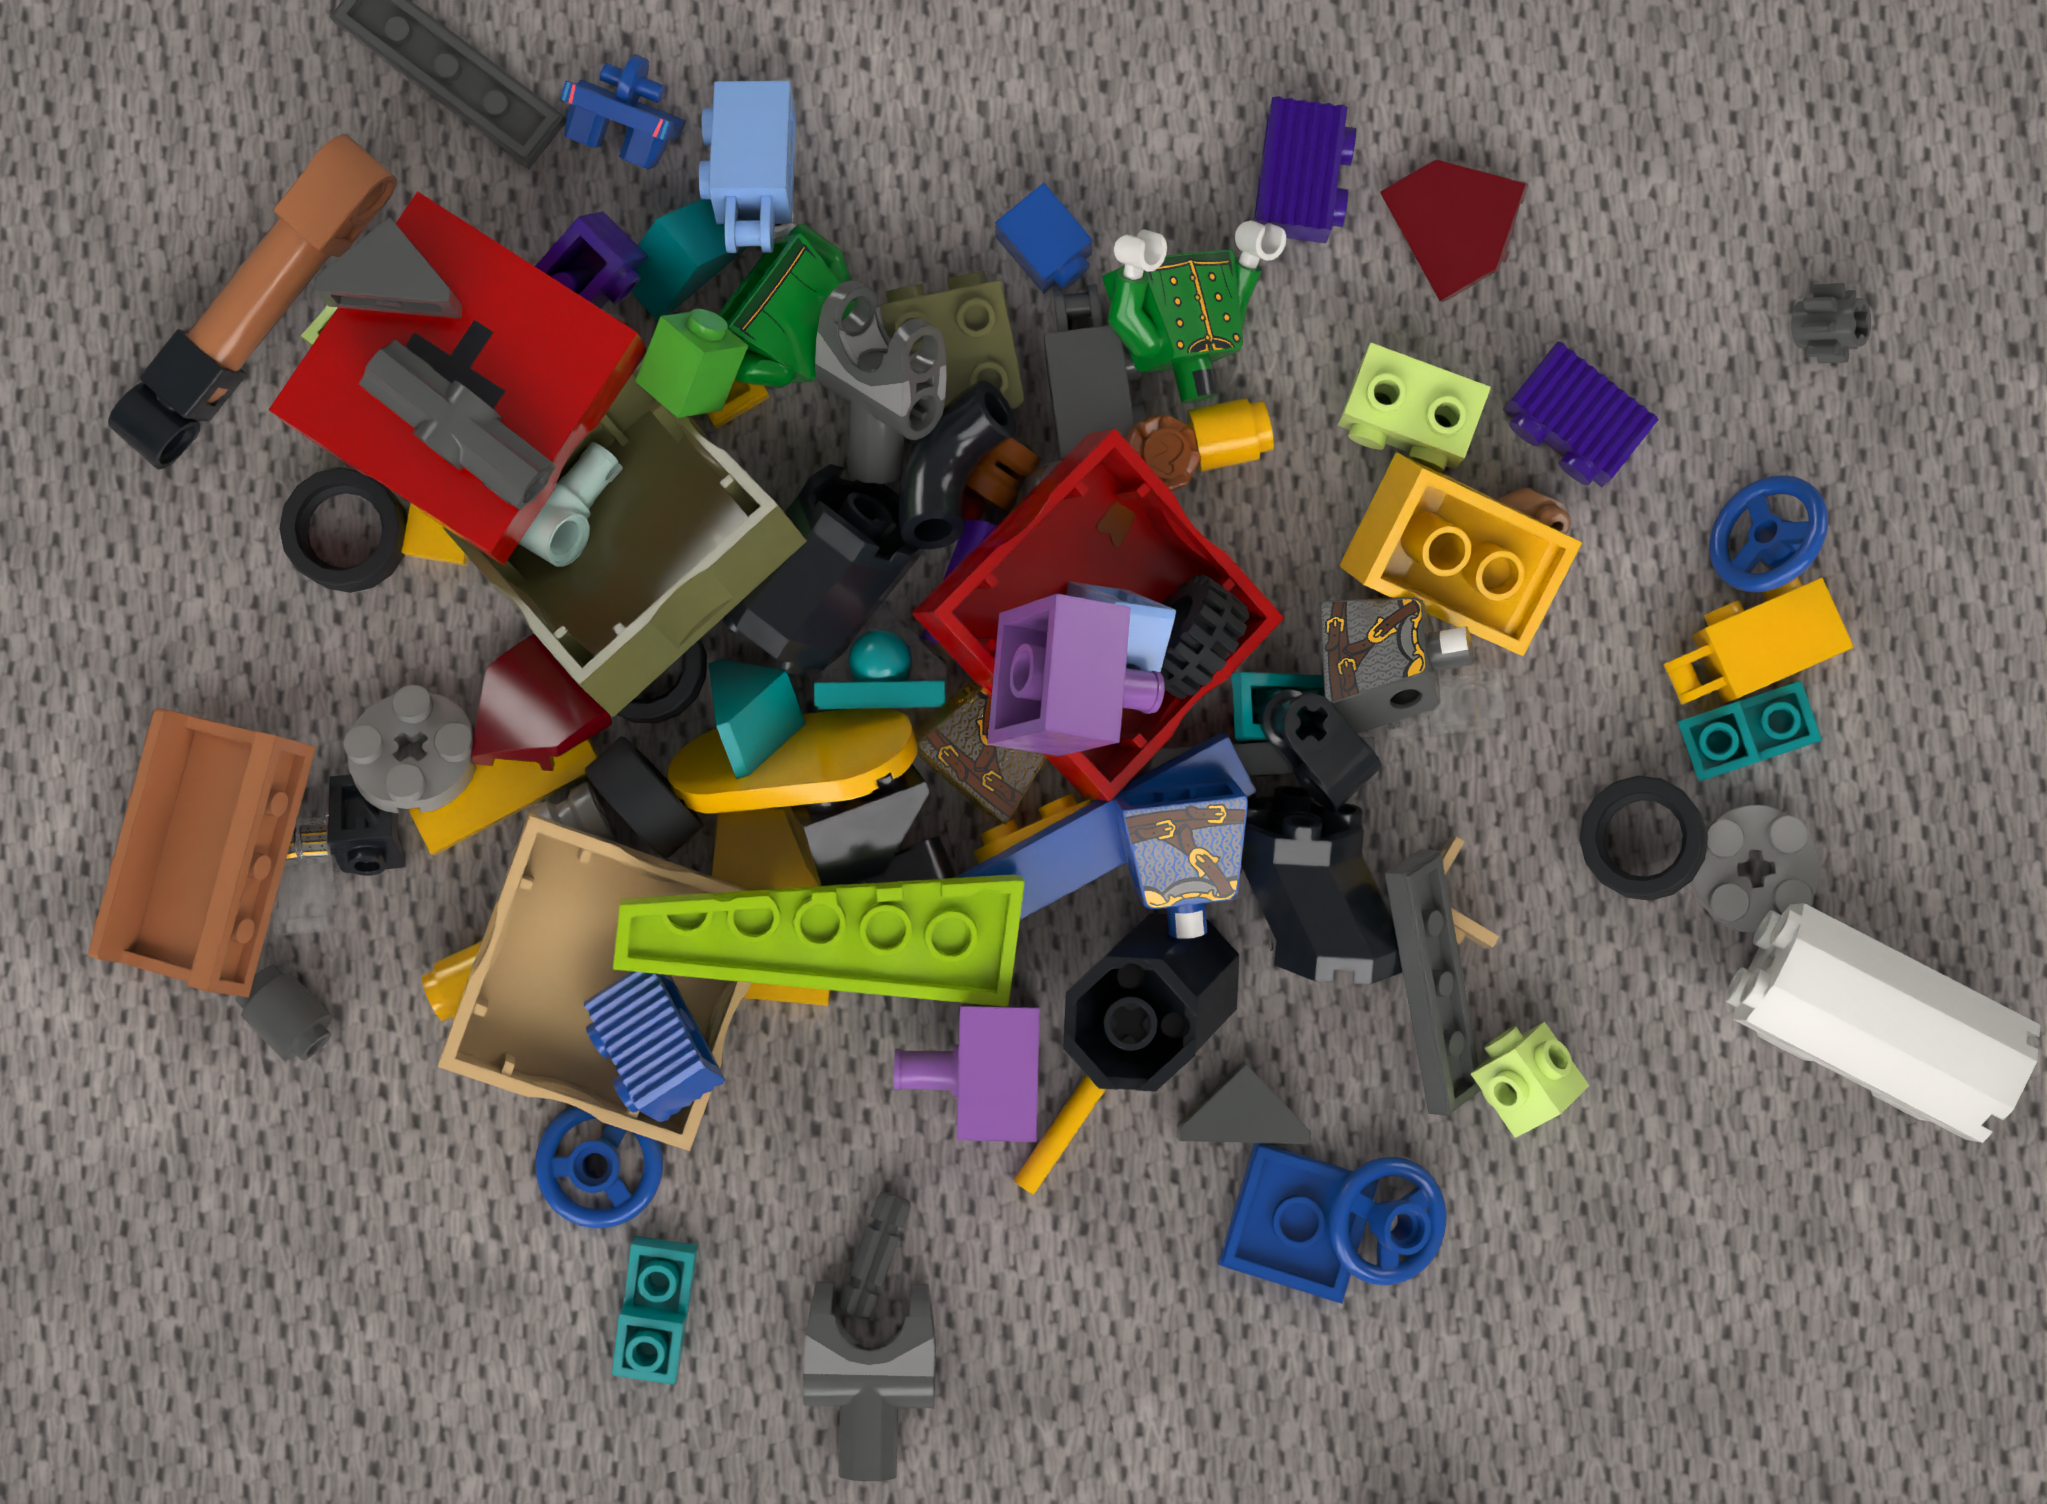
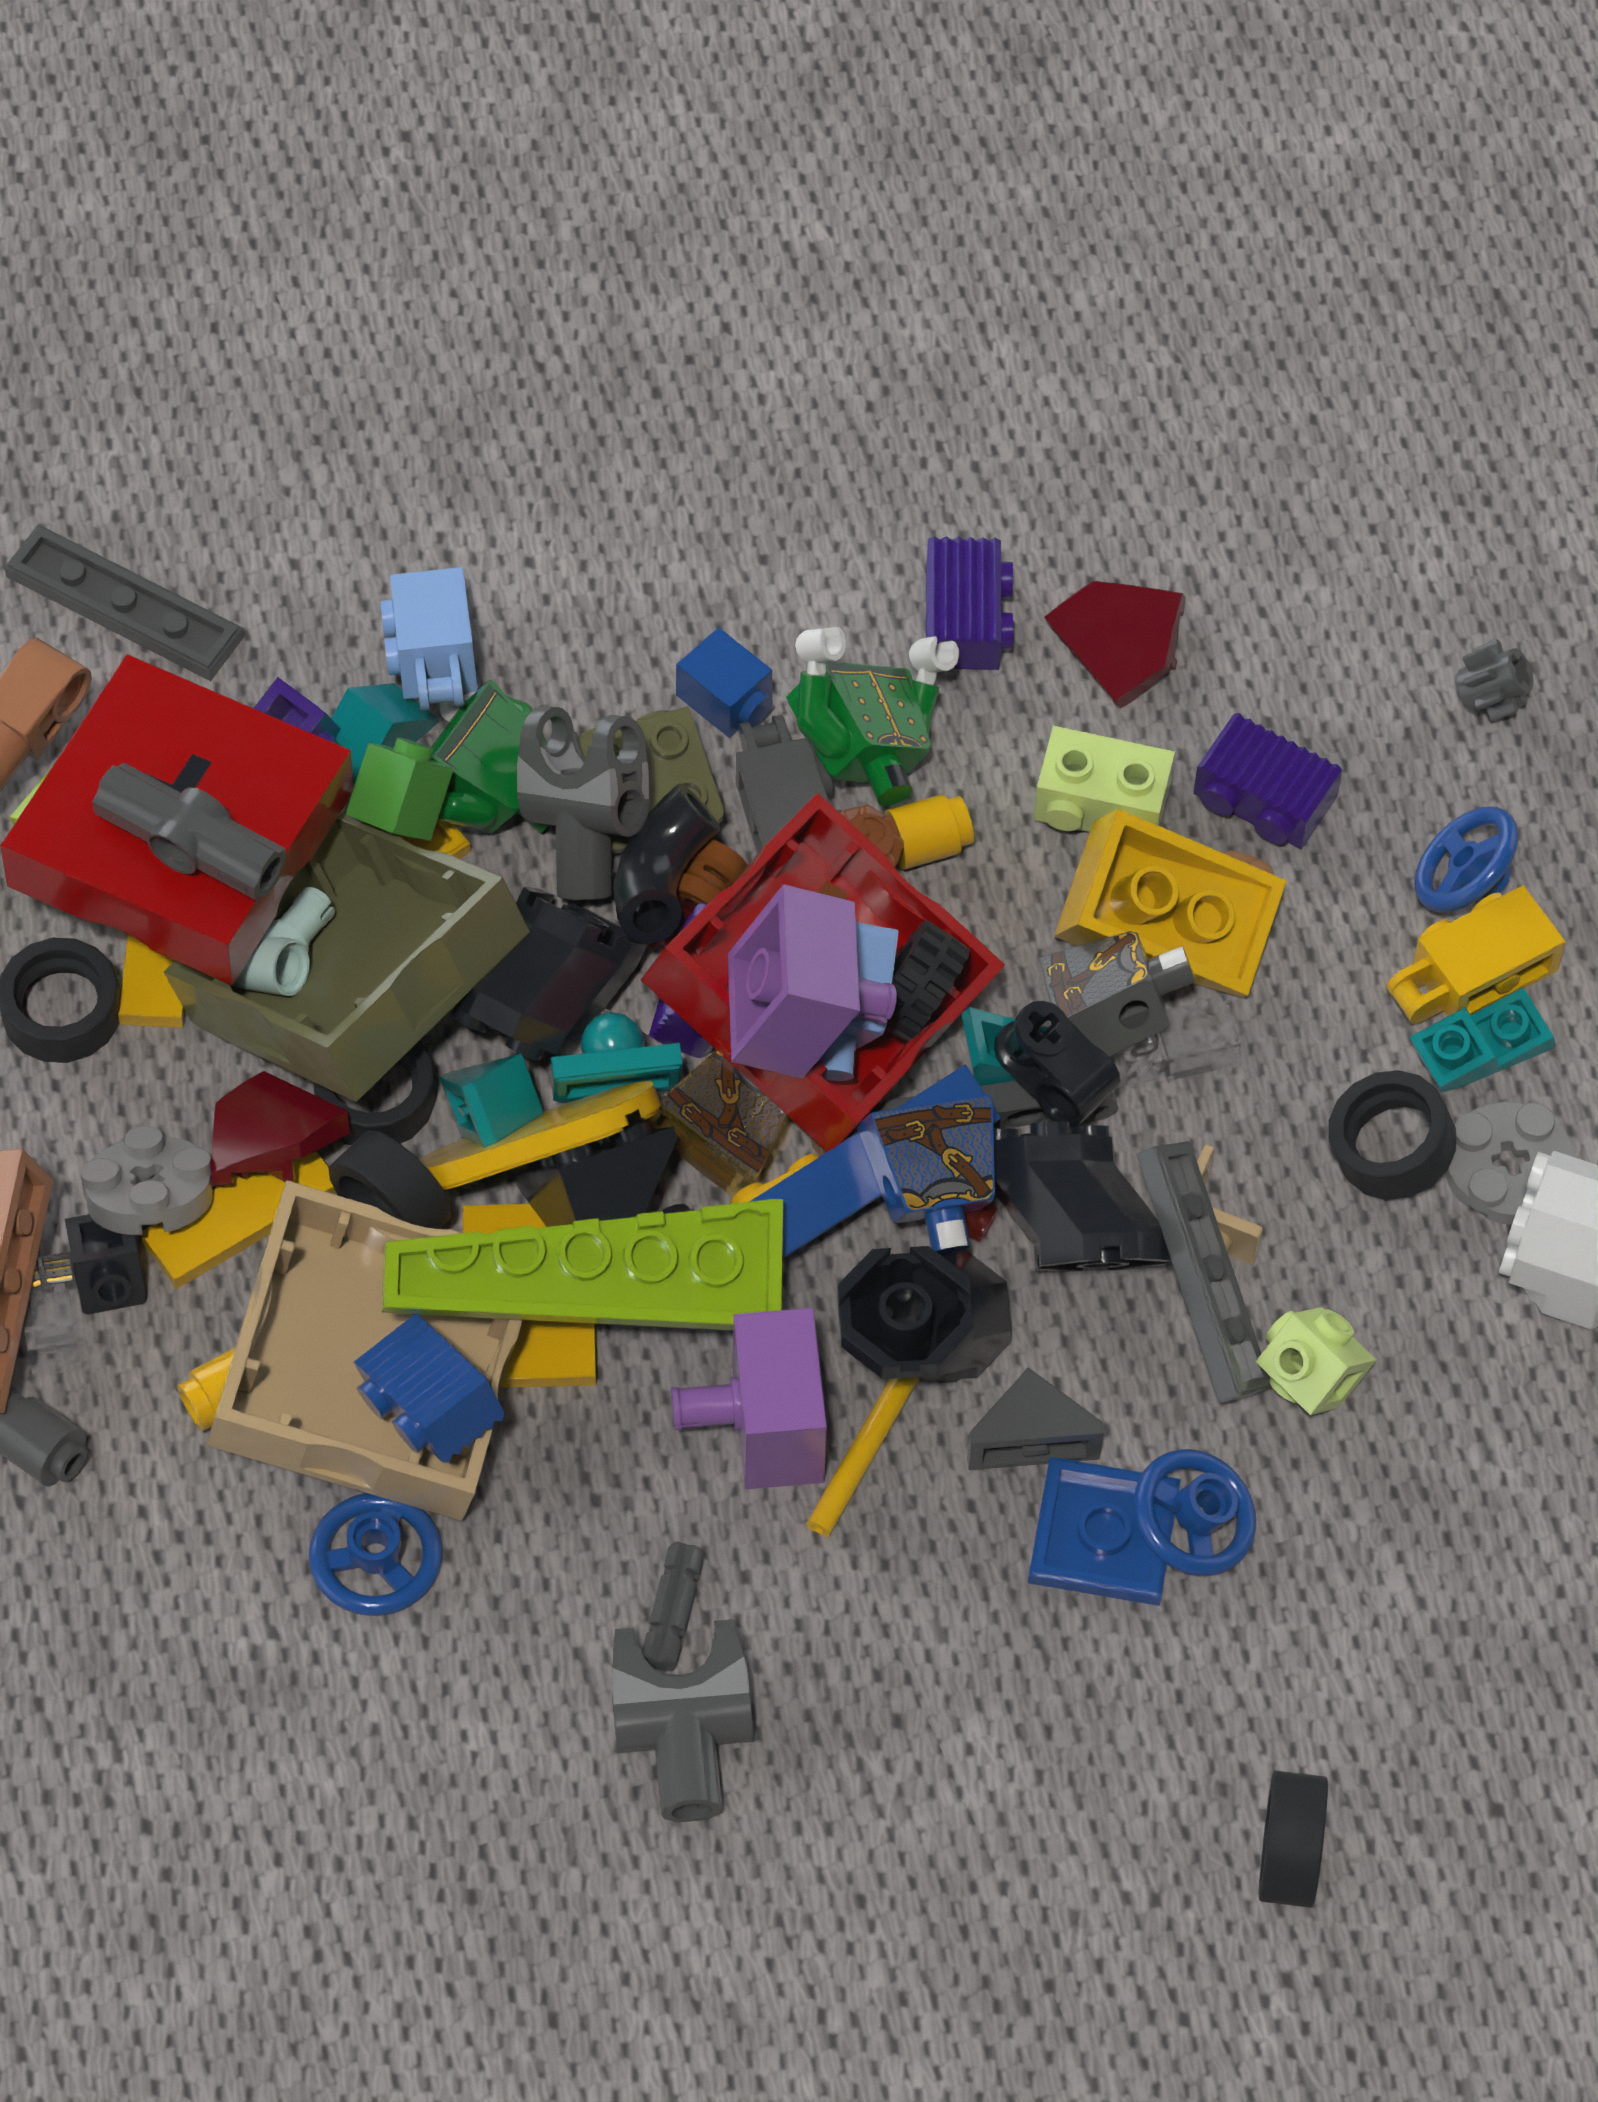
camera: 10 degrees left, 25 degrees down
(386, 276) = (112, 715): dark grey slope -> none
(594, 106) = (325, 624): blue hips -> none
(654, 1310) = (449, 1682): teal slope -> none

